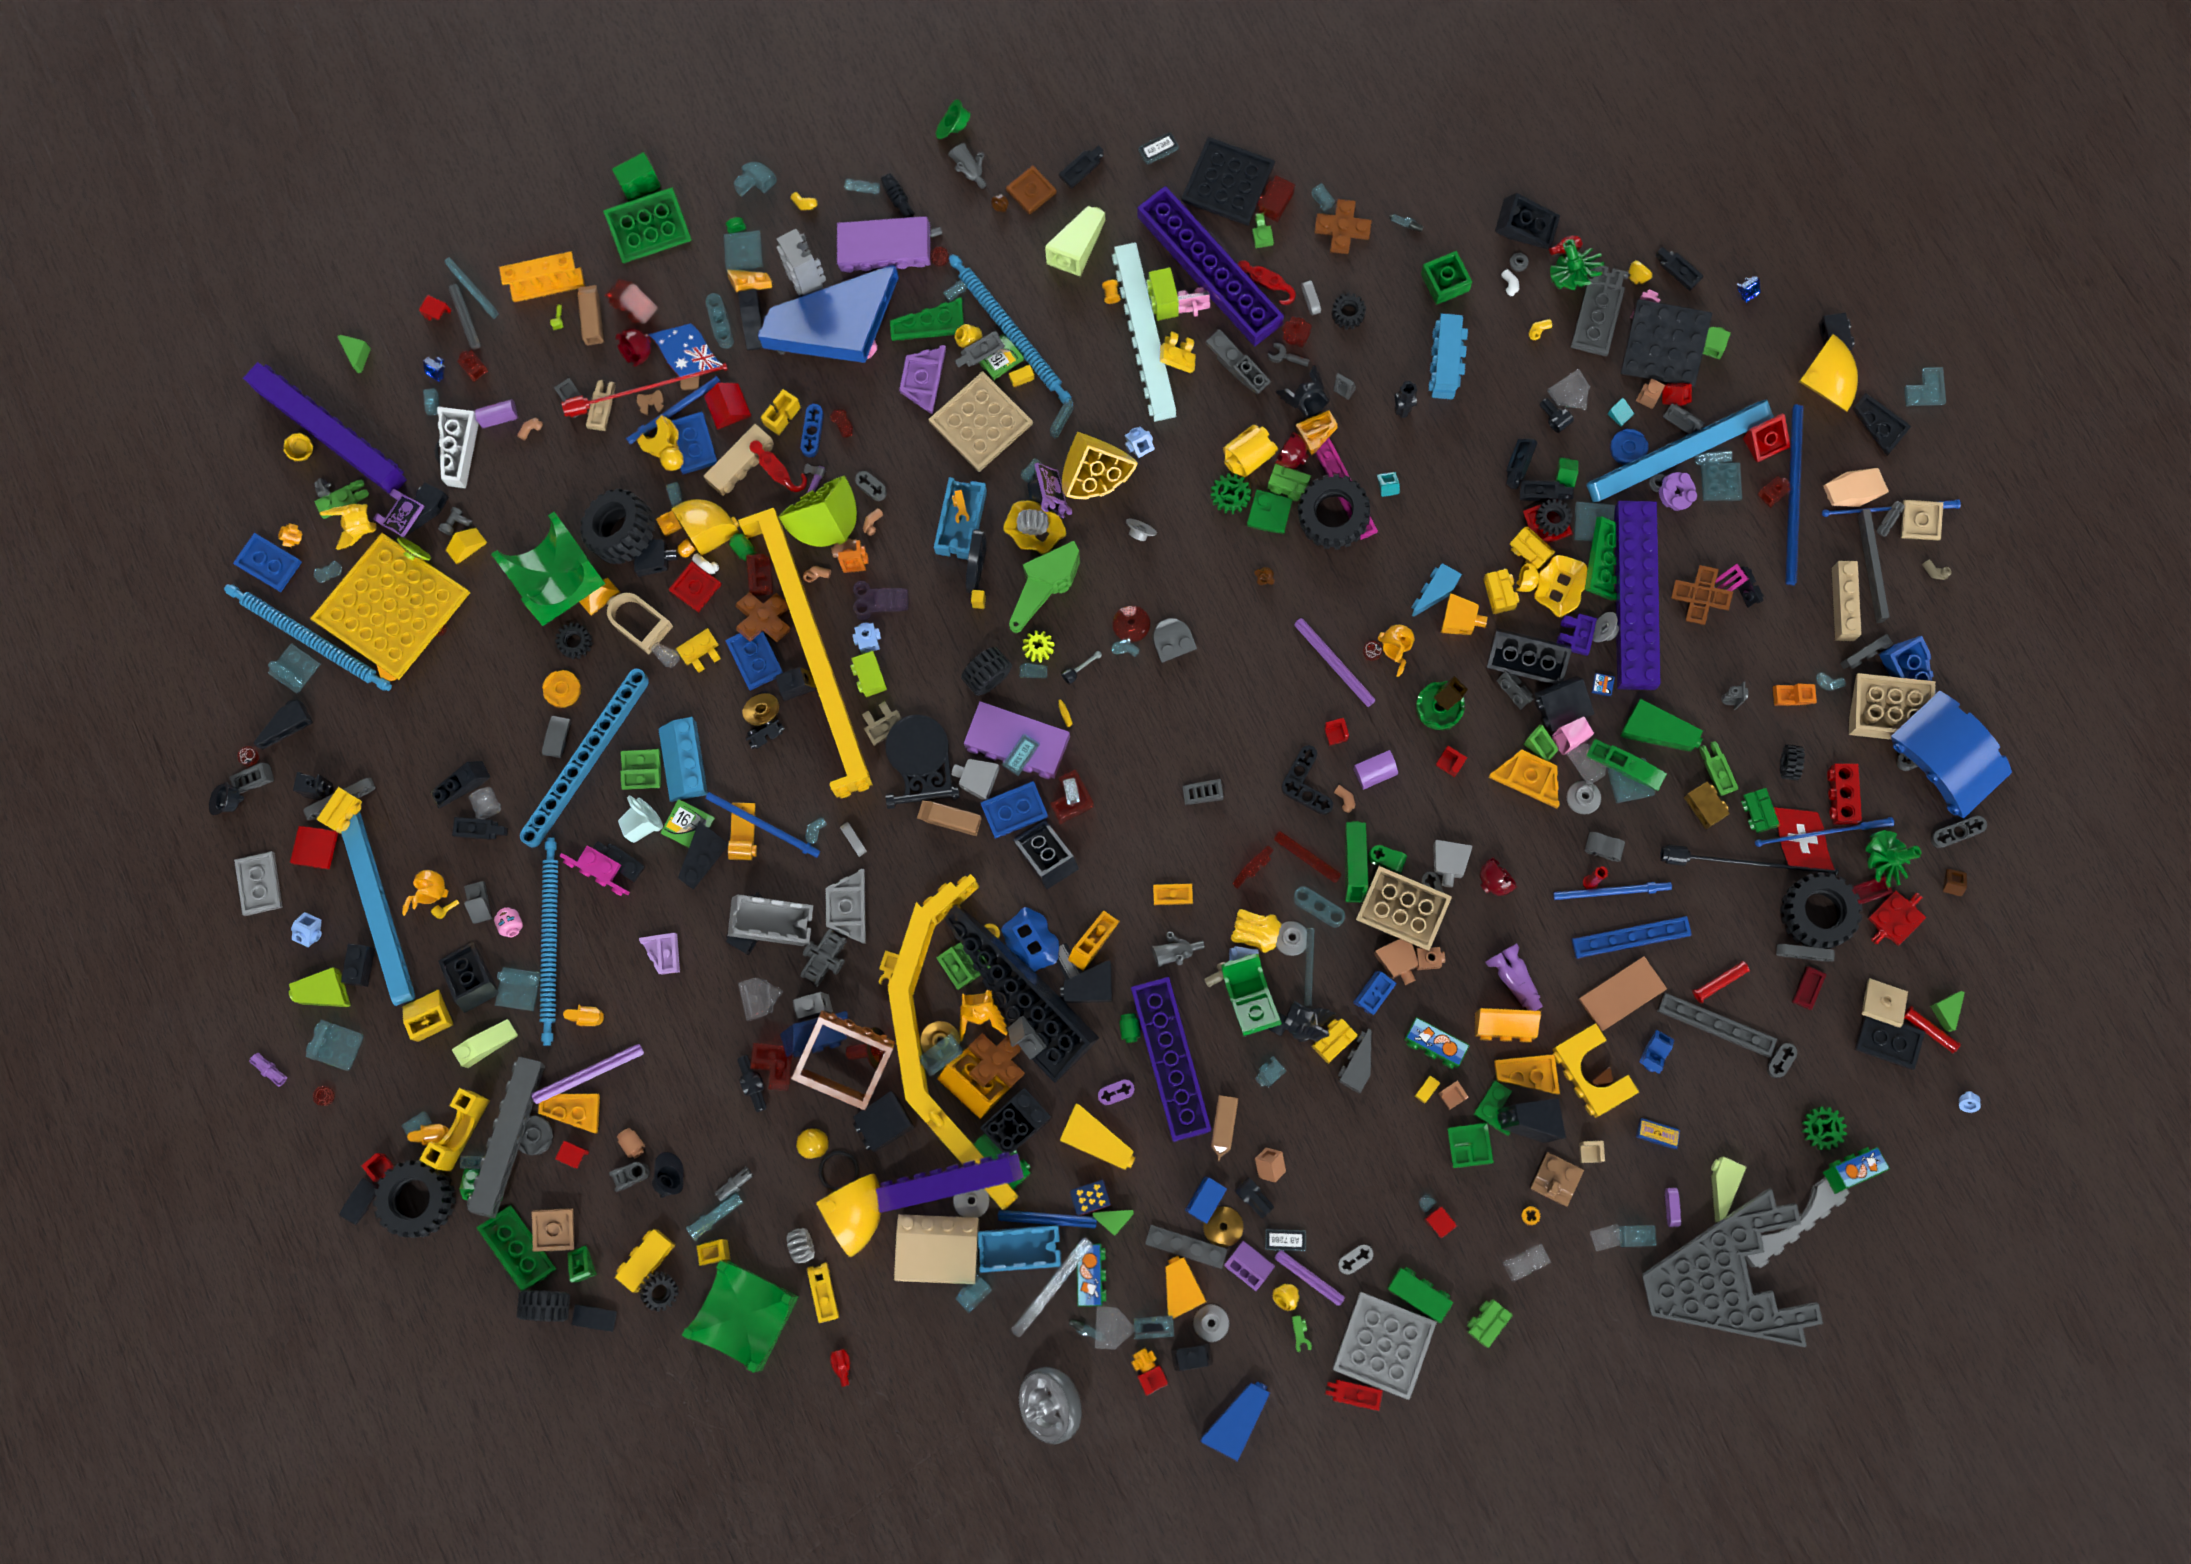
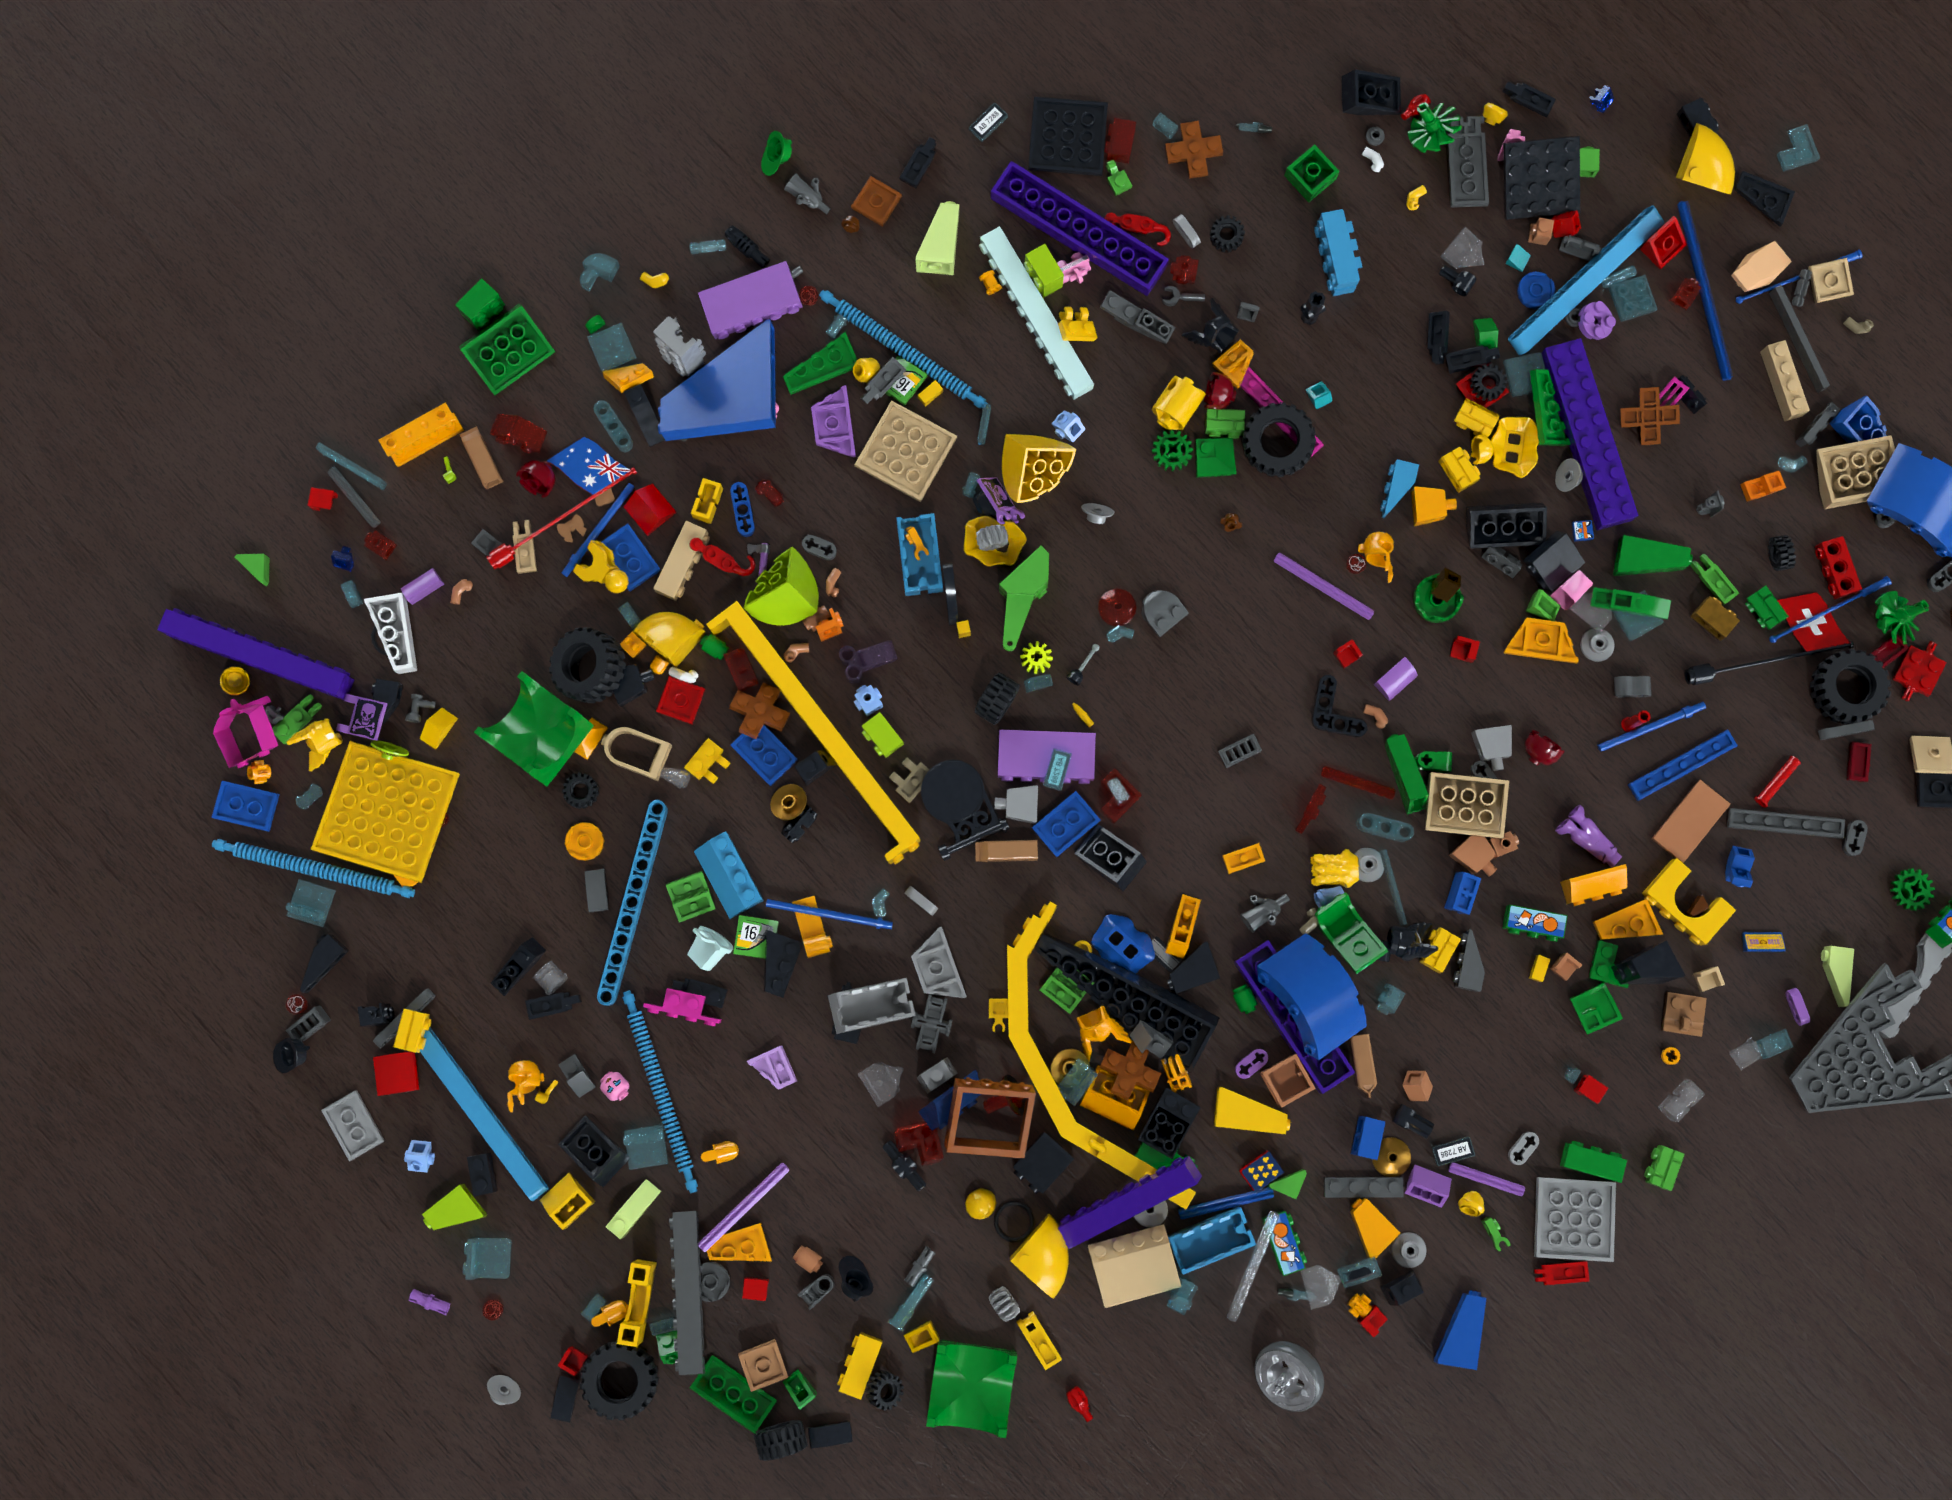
camera: 25 degrees left, 5 degrees up
(301, 493) = (260, 724): none -> dark pink piece
(304, 1173) = (503, 1390): none -> light grey piece
(1040, 1074) = (1175, 1074): none -> light orange arm
(1144, 1118) = (1287, 1080): none -> nougat piece
(1196, 1043) = (1315, 993): none -> blue panel
(1582, 635) = (1548, 487): dark purple plate -> none

